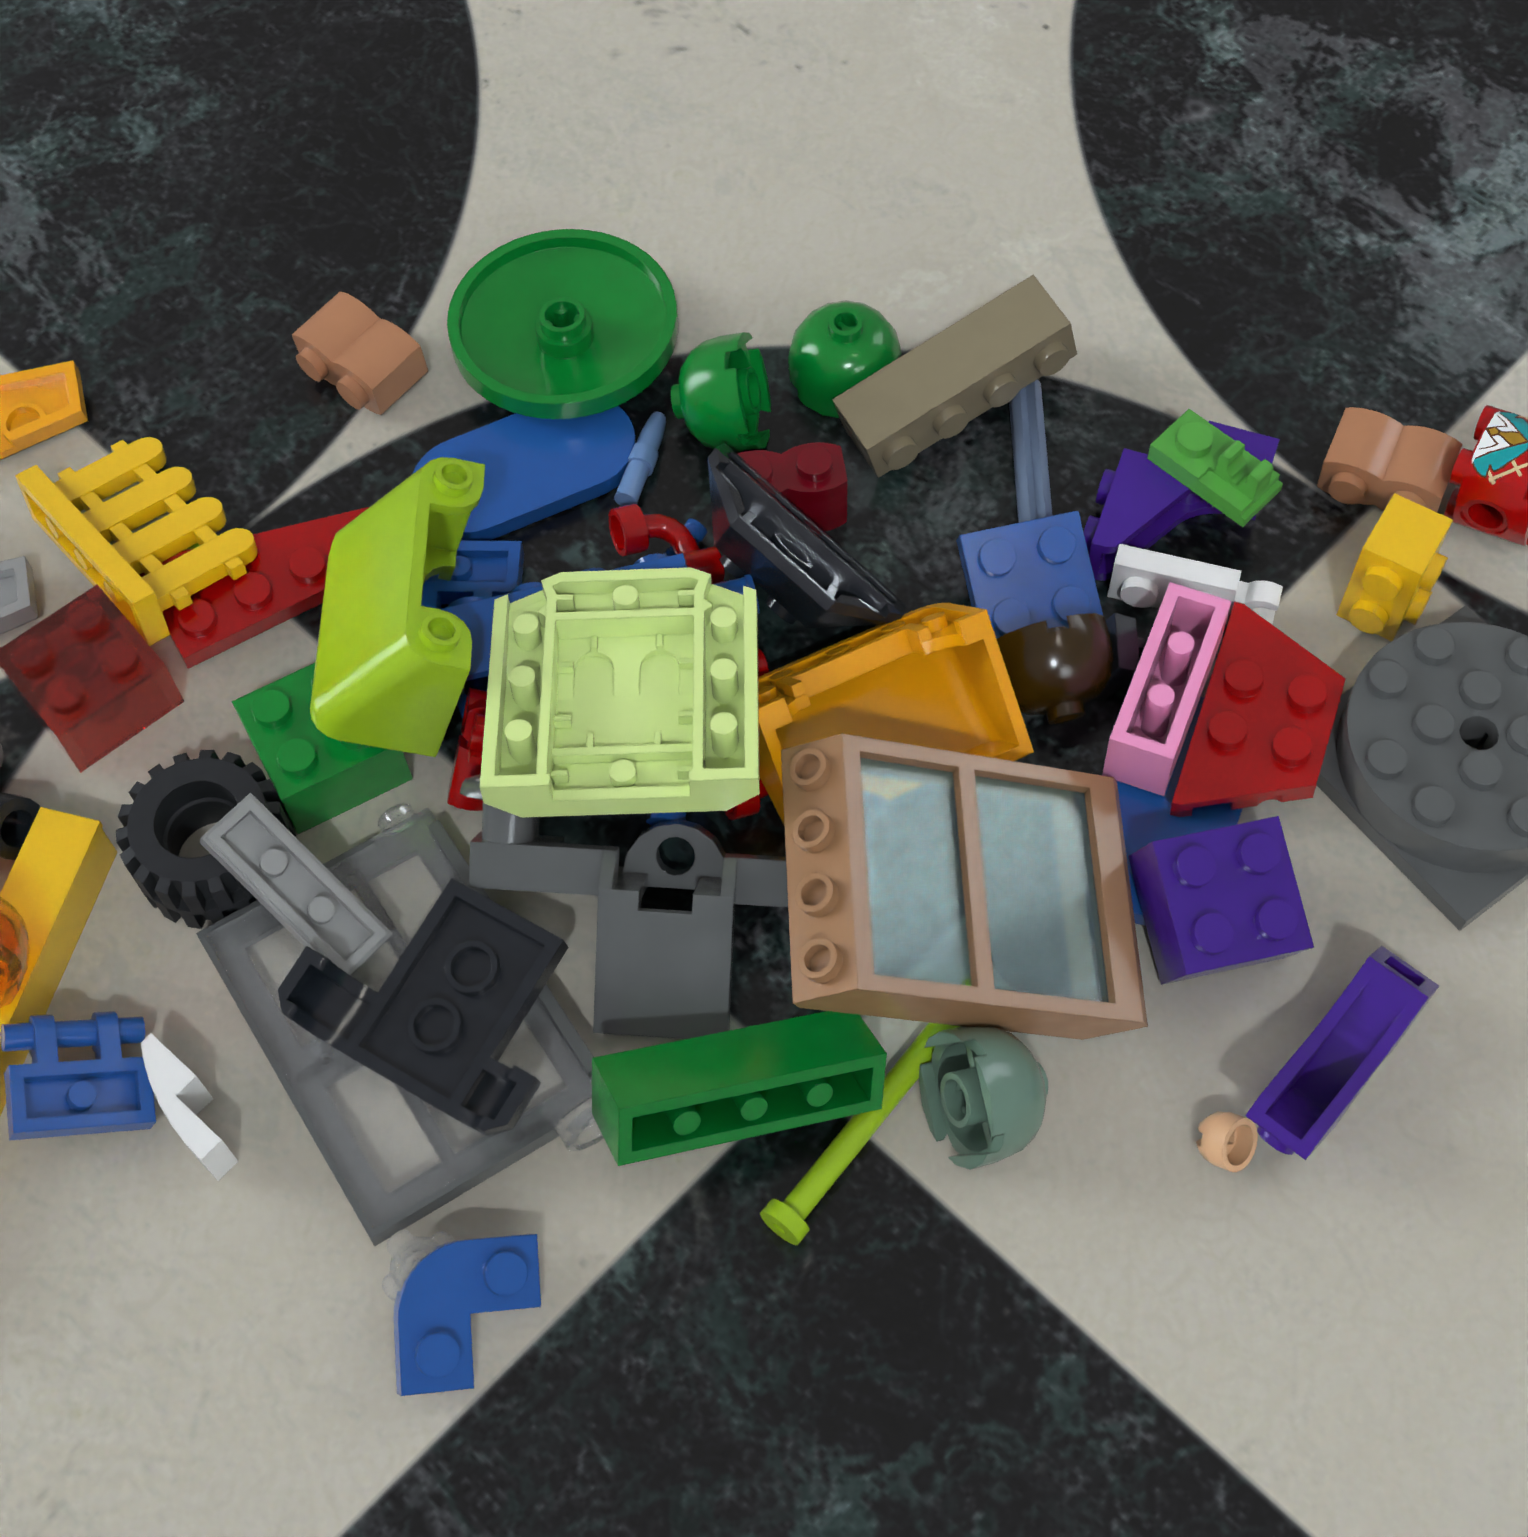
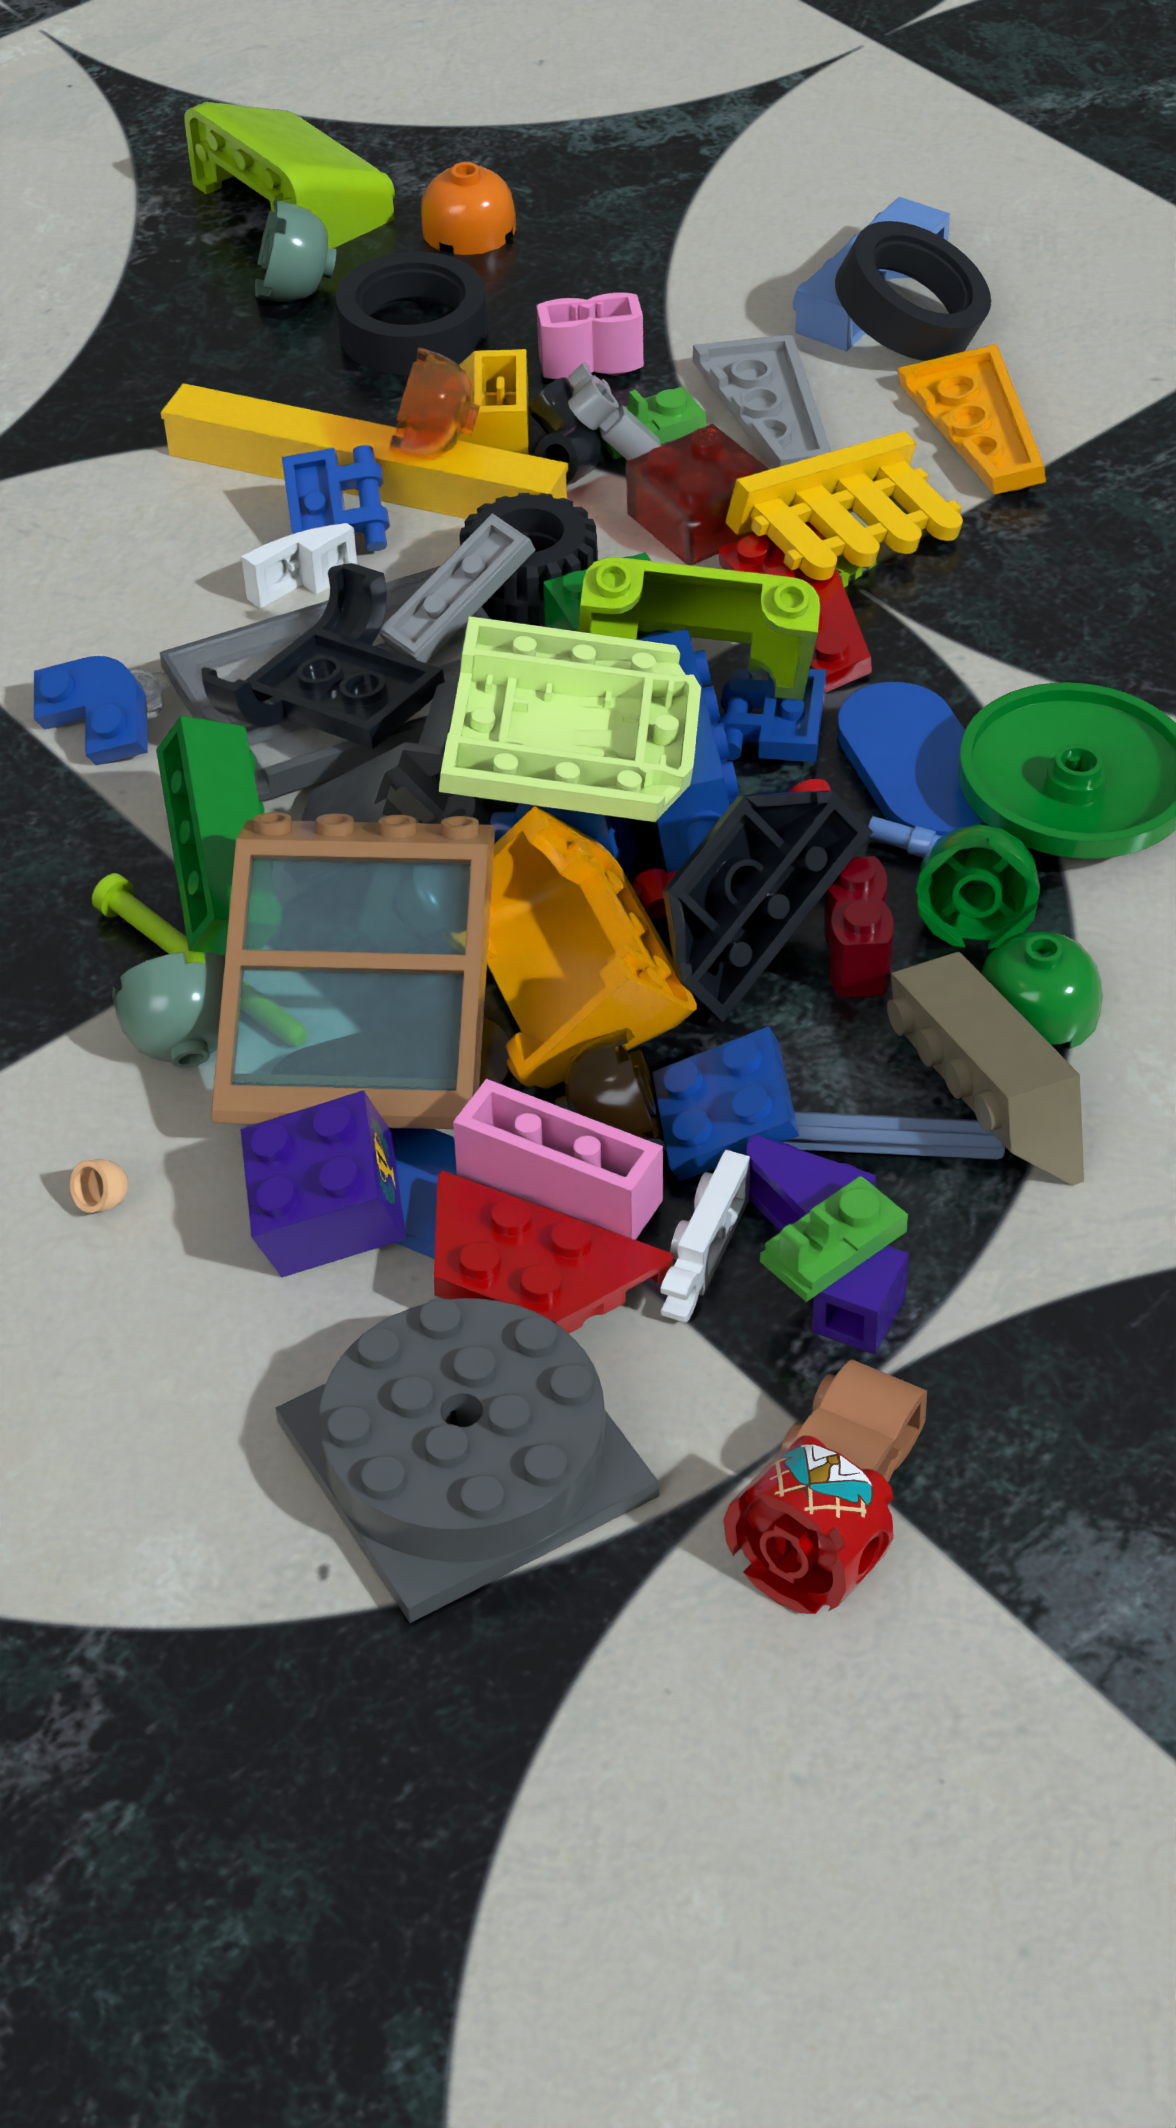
camera: 95 degrees right, 15 degrees down
(359, 354) = (1055, 642): nougat brick -> none
(1341, 1054) = (135, 1249): dark purple arch -> none
(1396, 569) = (688, 1384): yellow brick -> none

